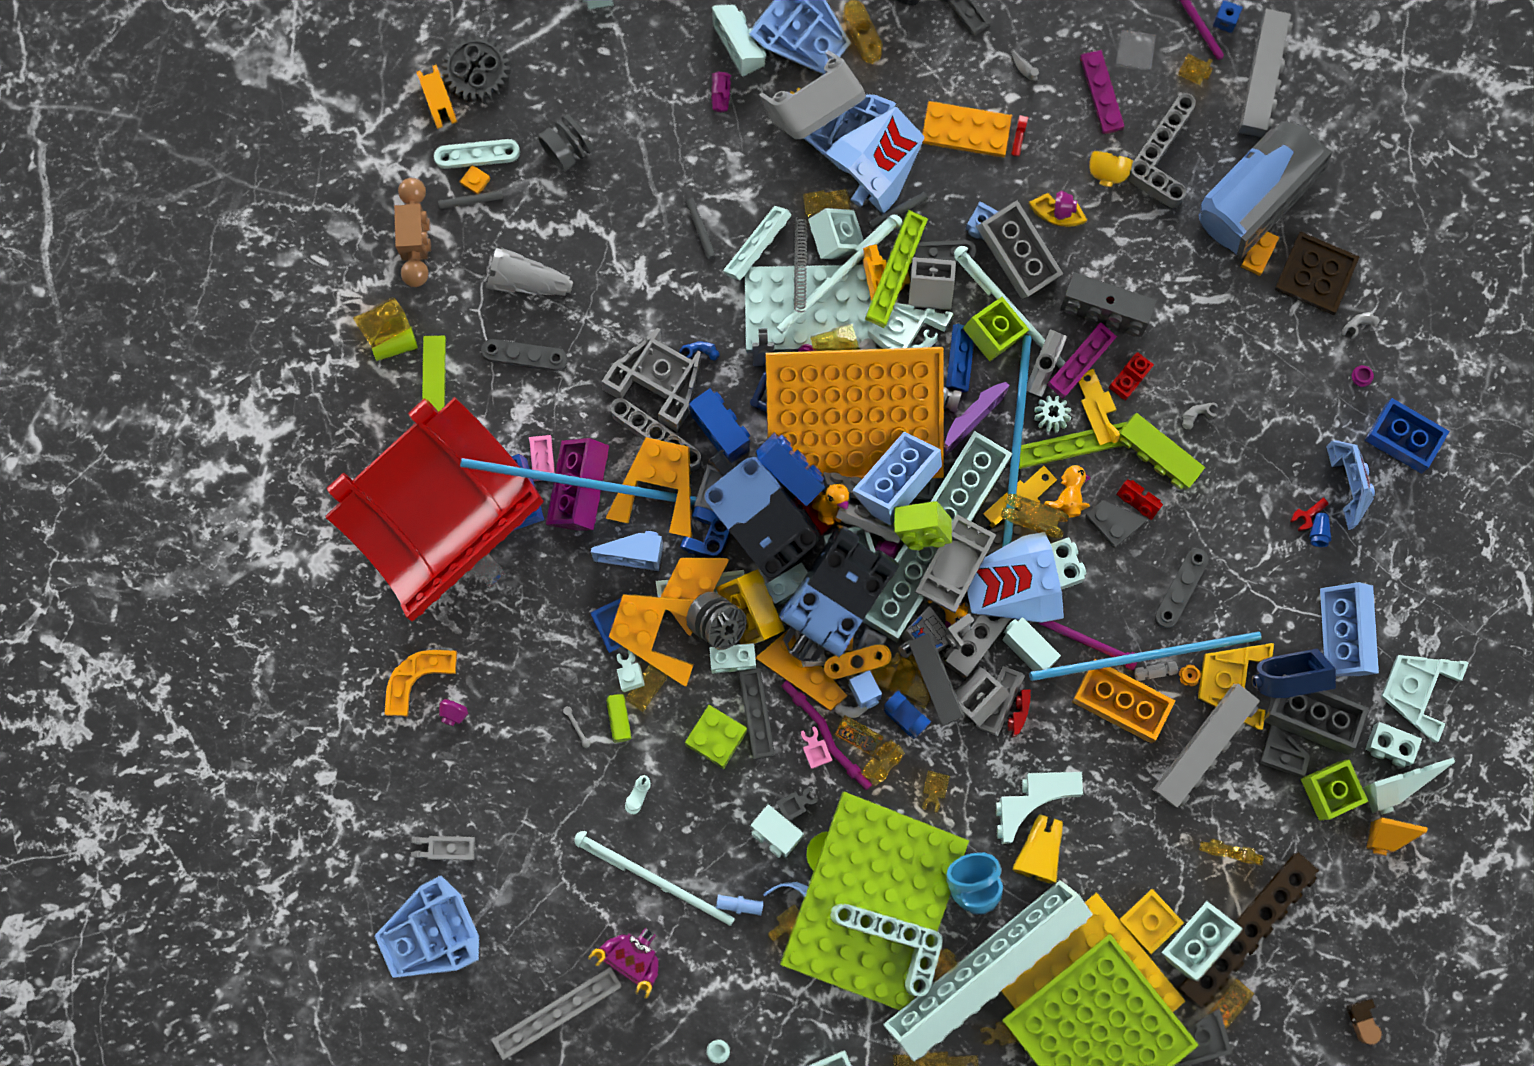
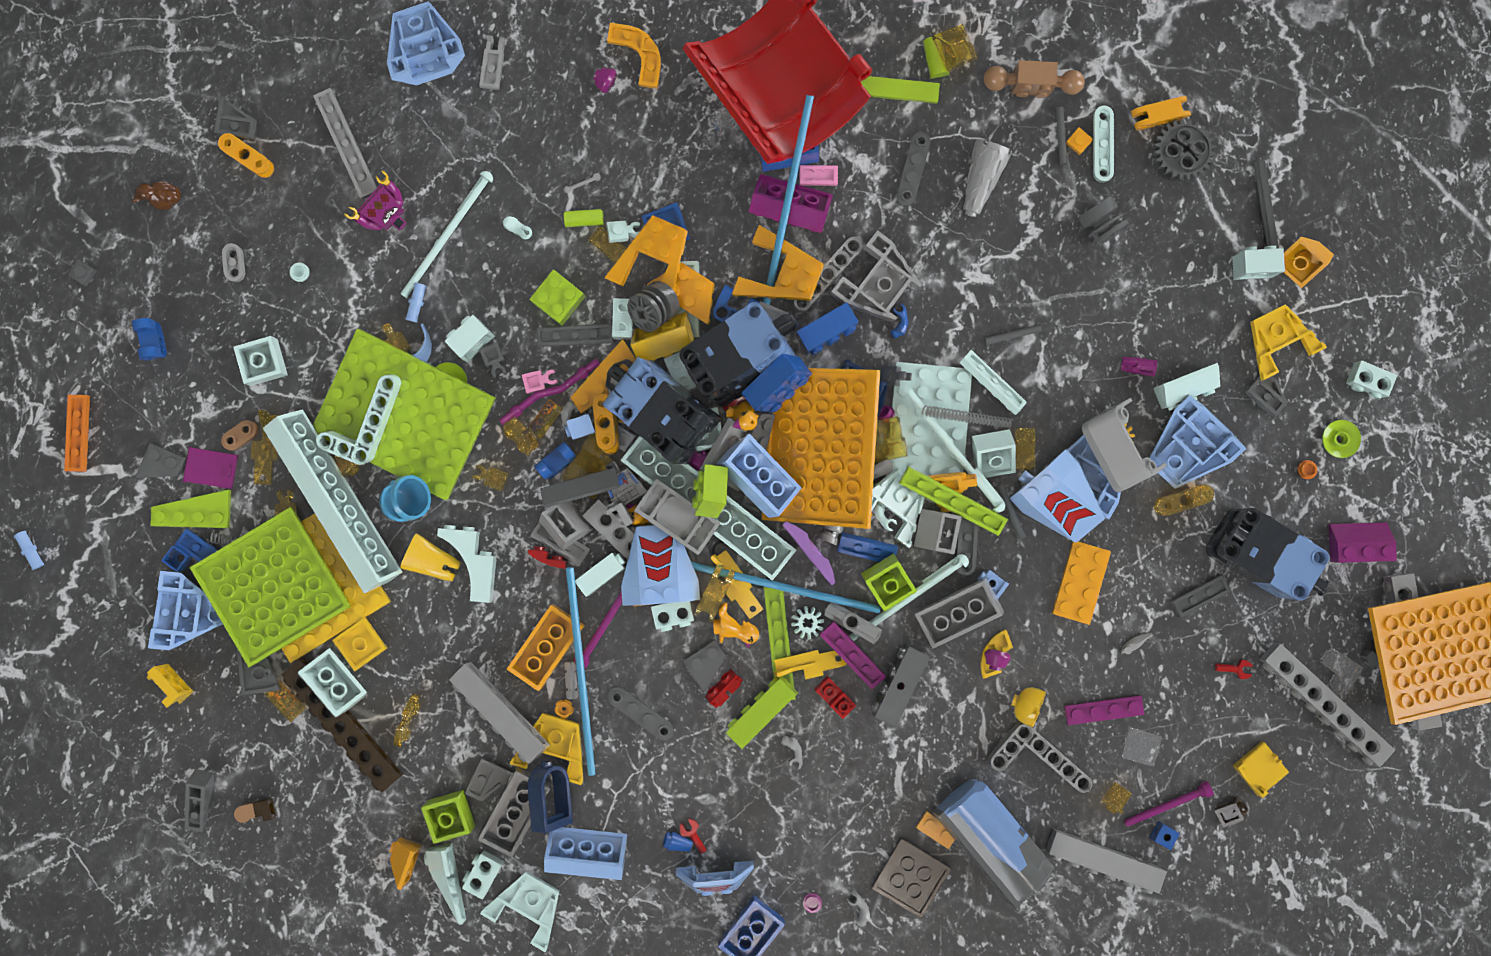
camera: 95 degrees right, 10 degrees up
(634, 551) = (723, 251): light blue slope -> none
(1021, 126) = (1068, 628): red bar -> none

